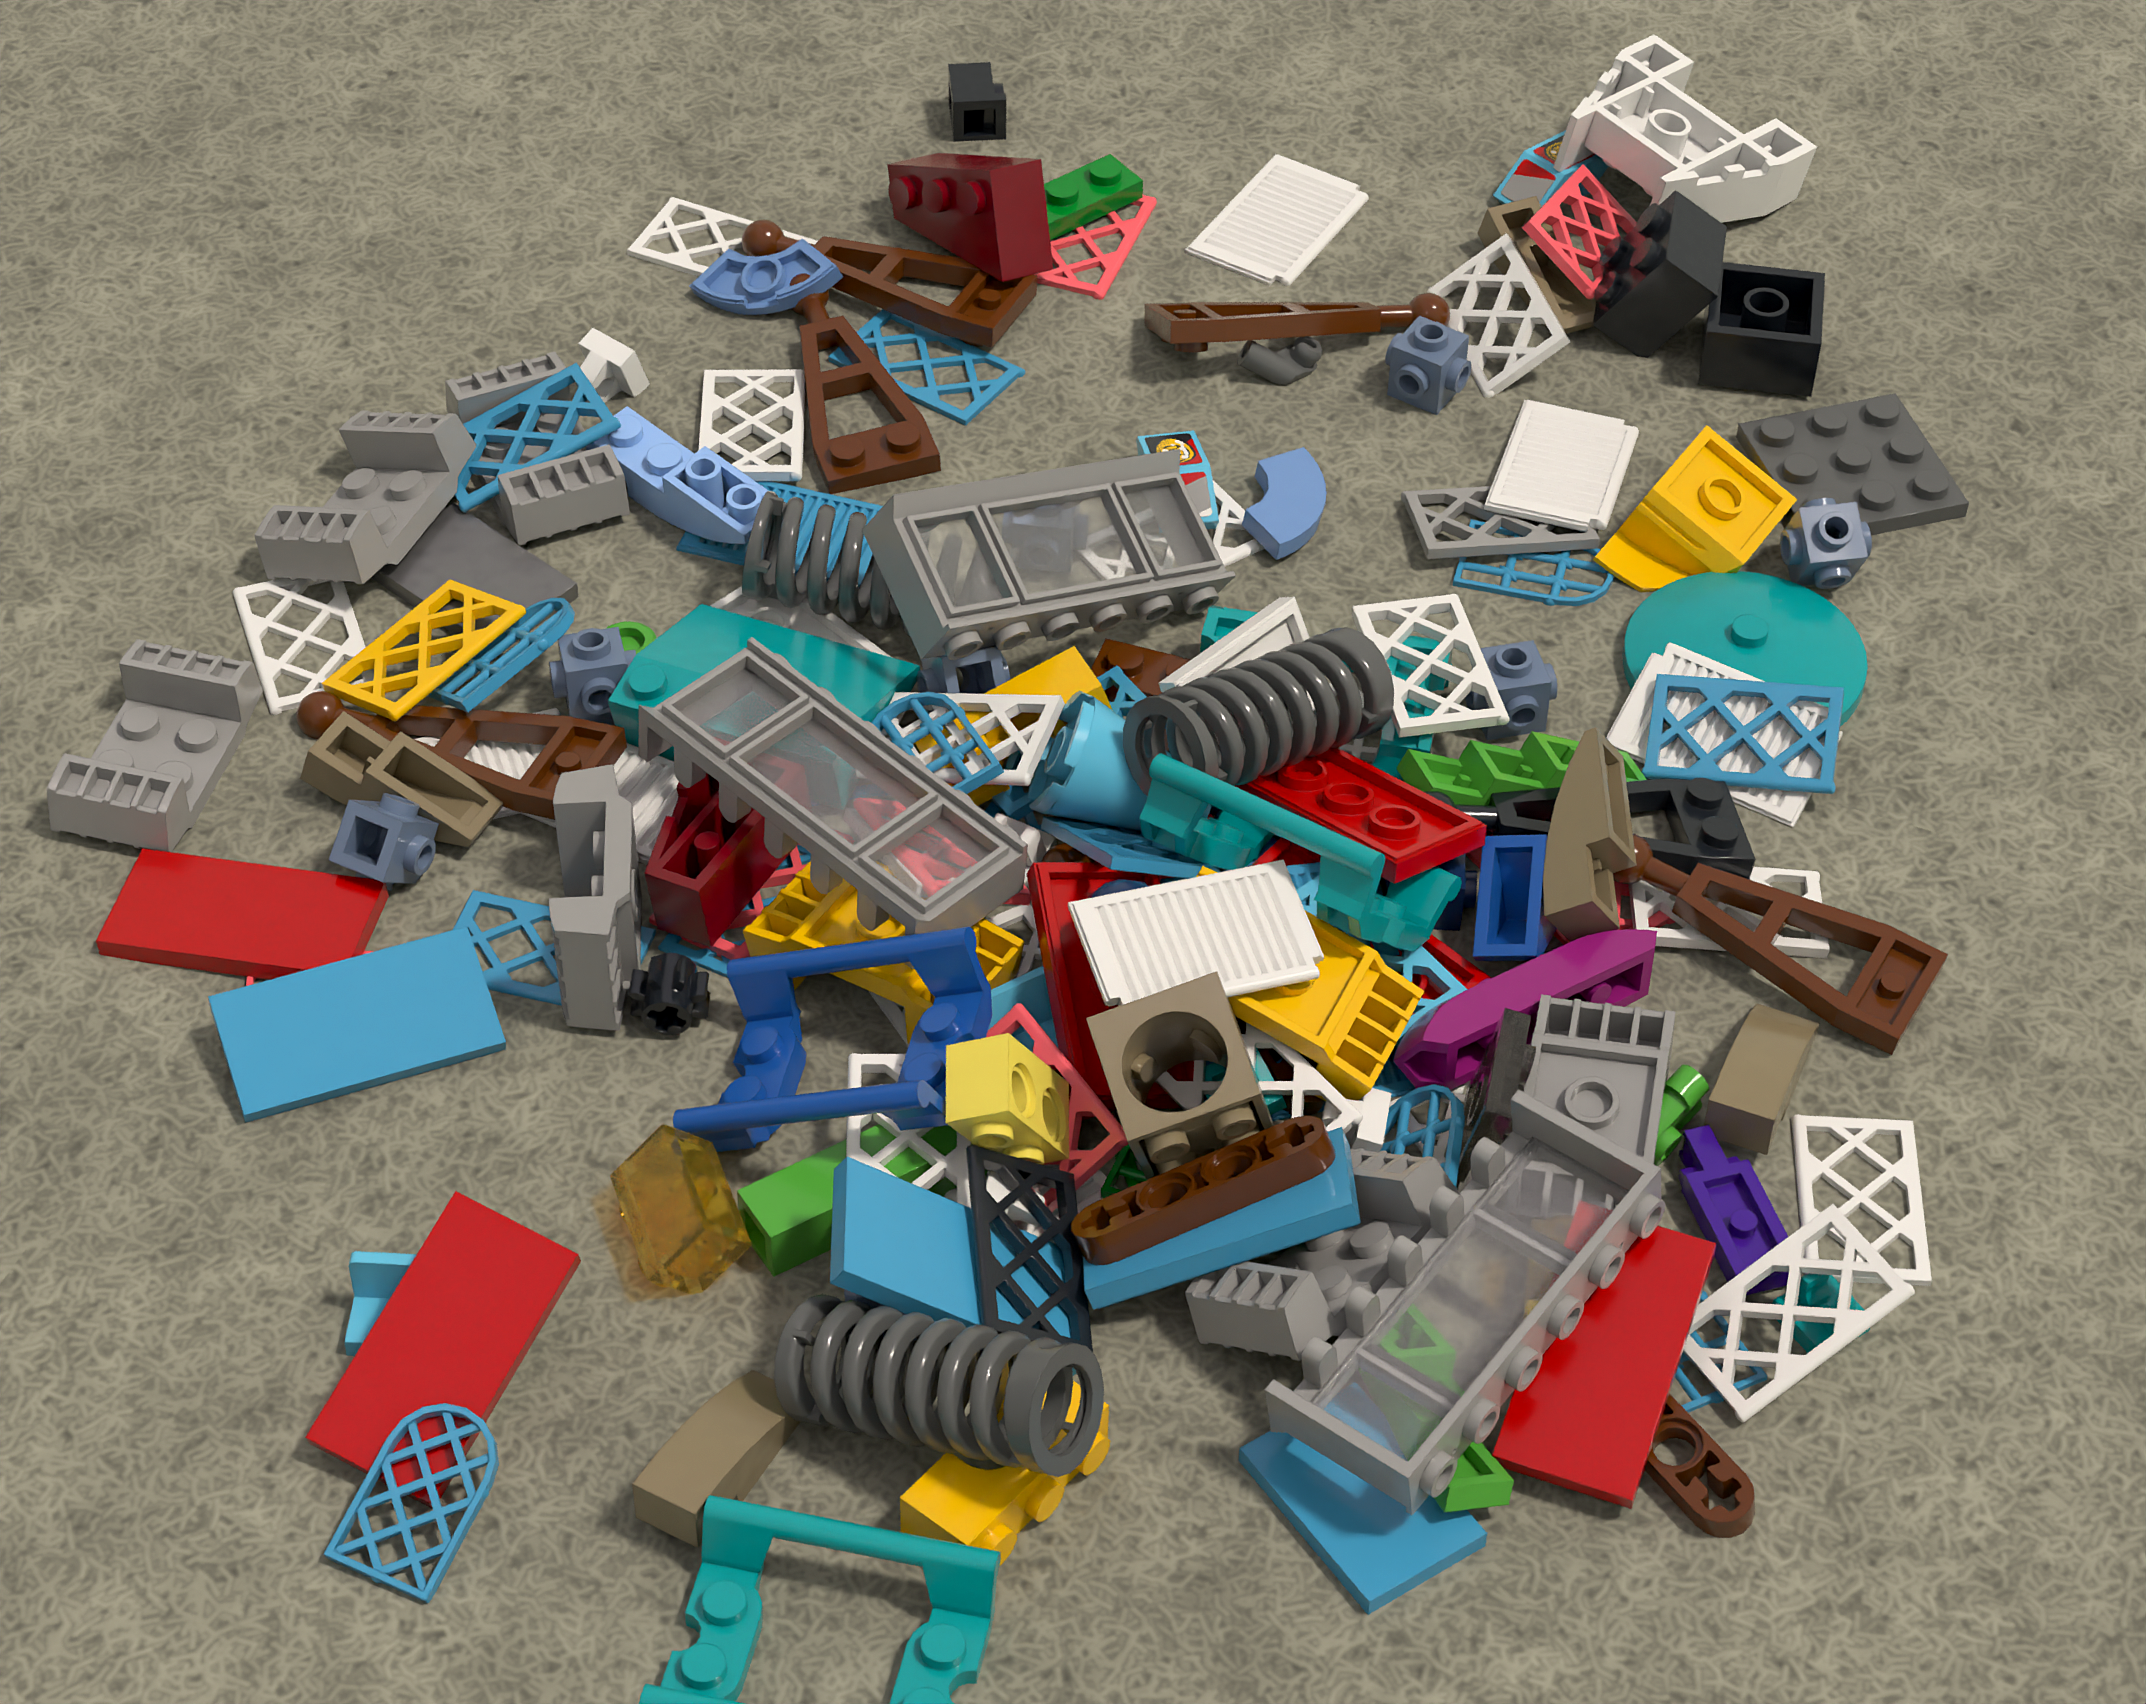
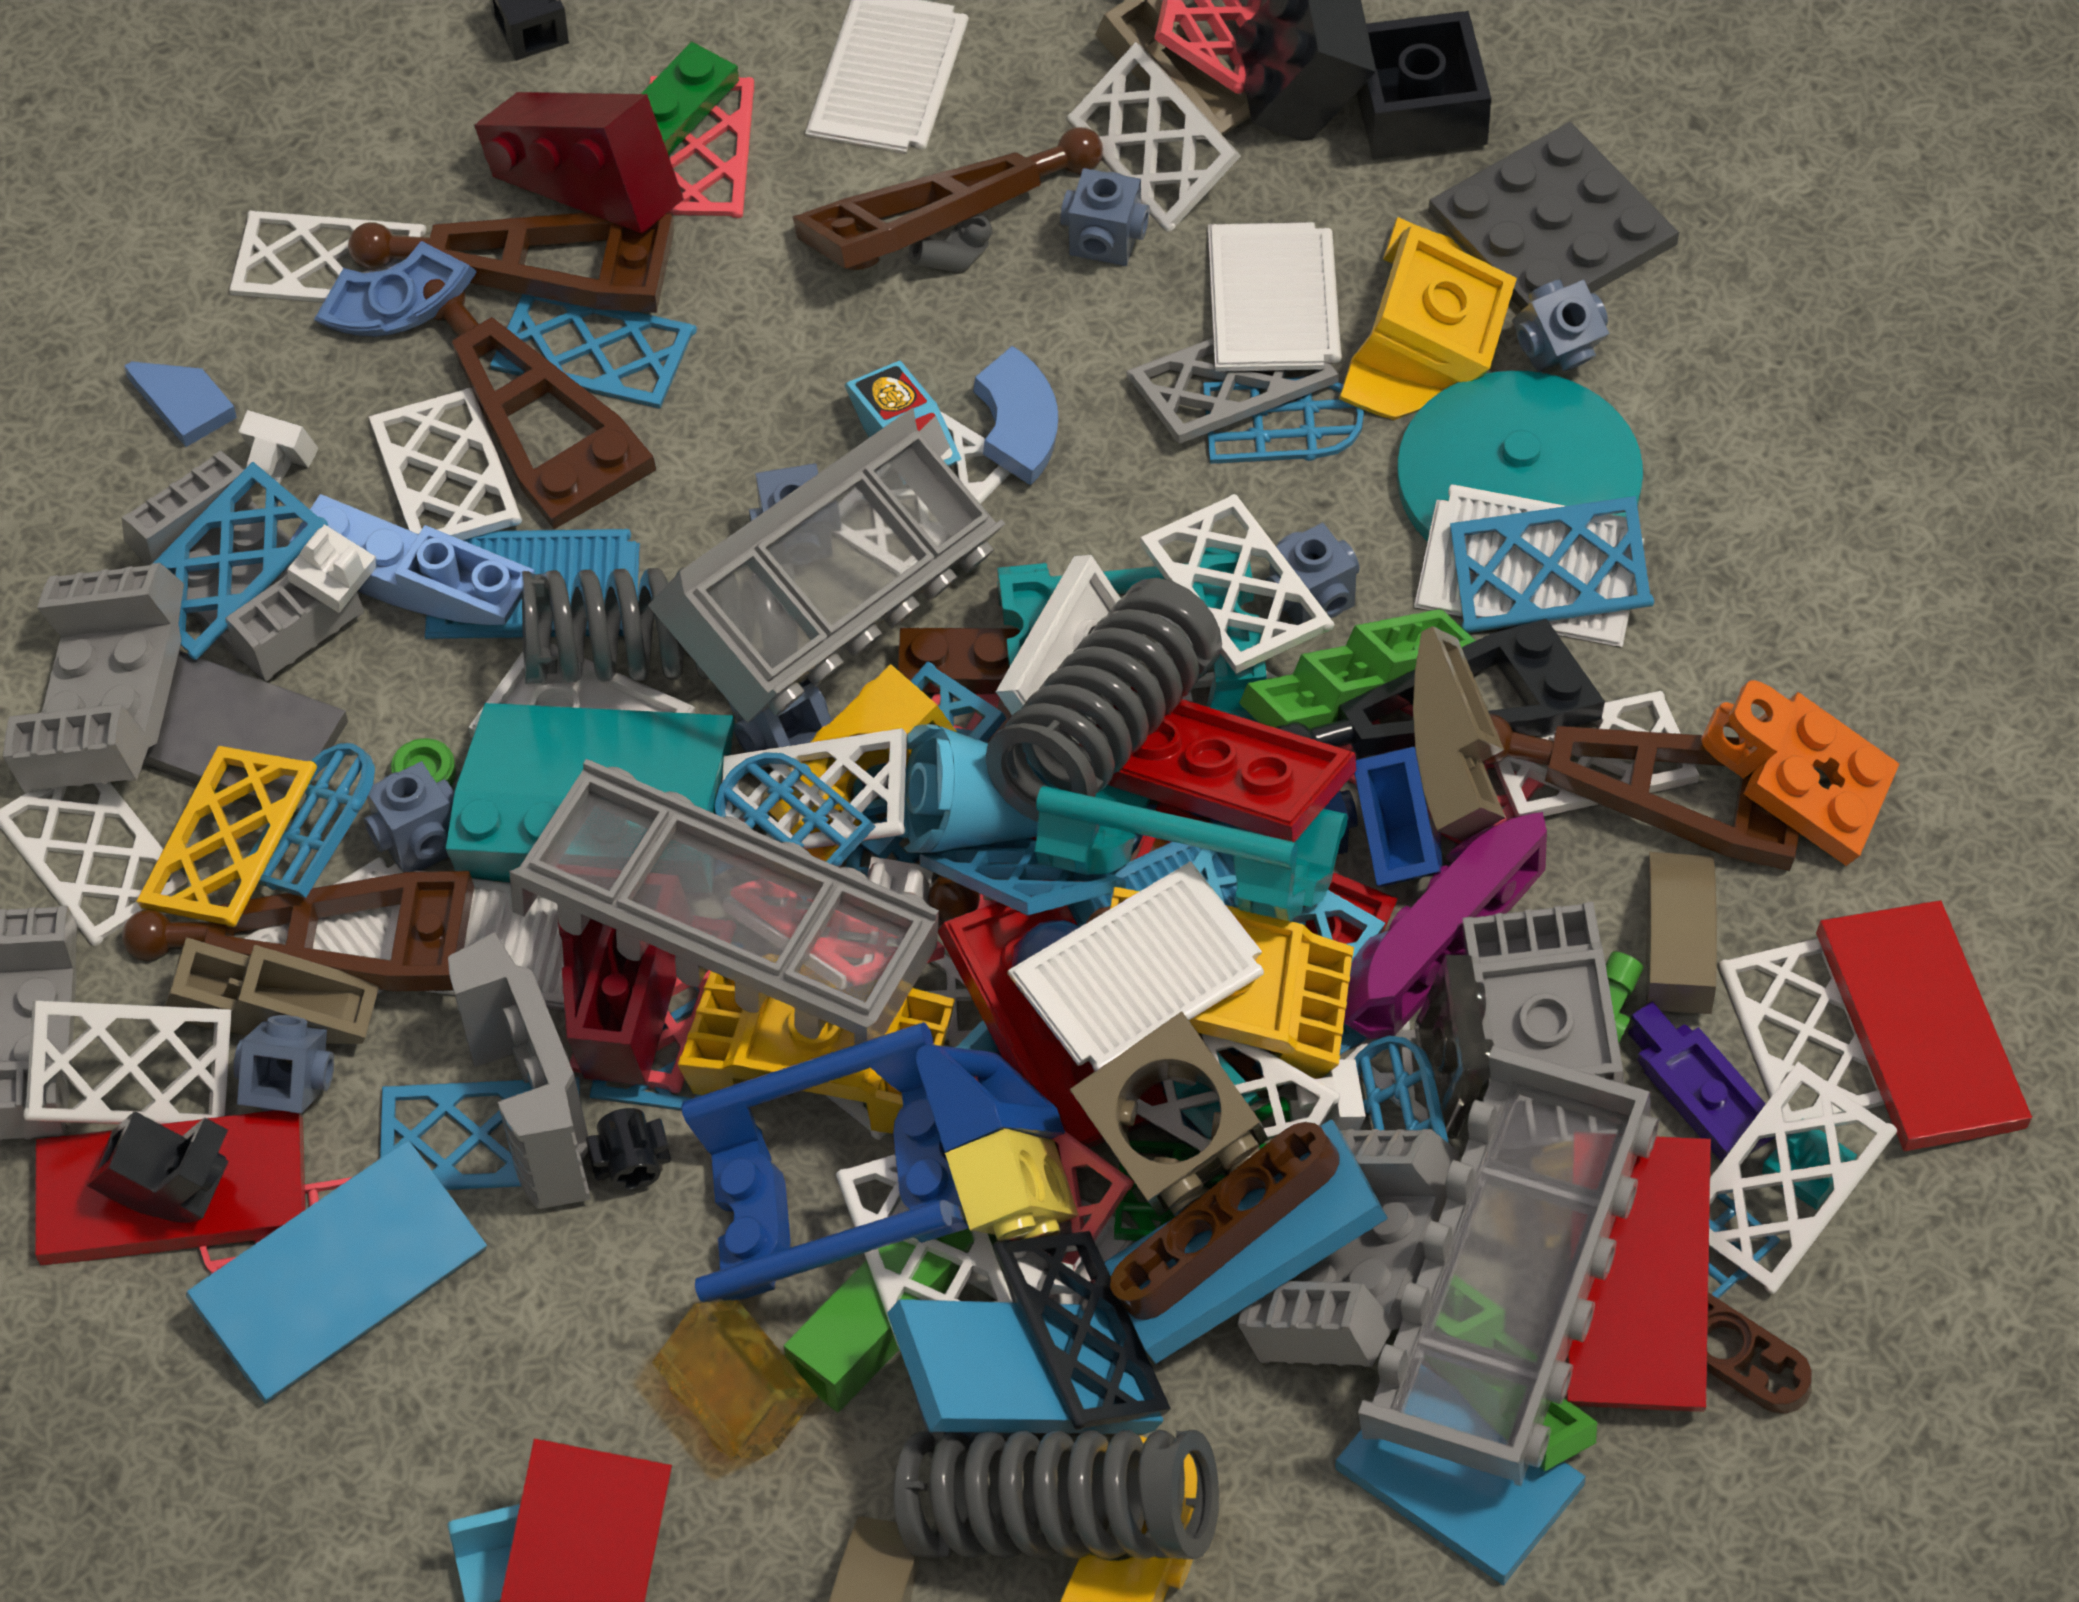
camera: 15 degrees left, 10 degrees up
(228, 747) = (98, 1018): none -> white window
(231, 890) = (161, 1170): none -> black brick
(548, 318) = (182, 398): none -> medium blue tile
(606, 456) = (331, 568): none -> white tile
(980, 1009) = (975, 1109): none -> blue tile
(1918, 944) = (1782, 755): none -> orange plate
(1981, 1223) = (1923, 1025): none -> red tile

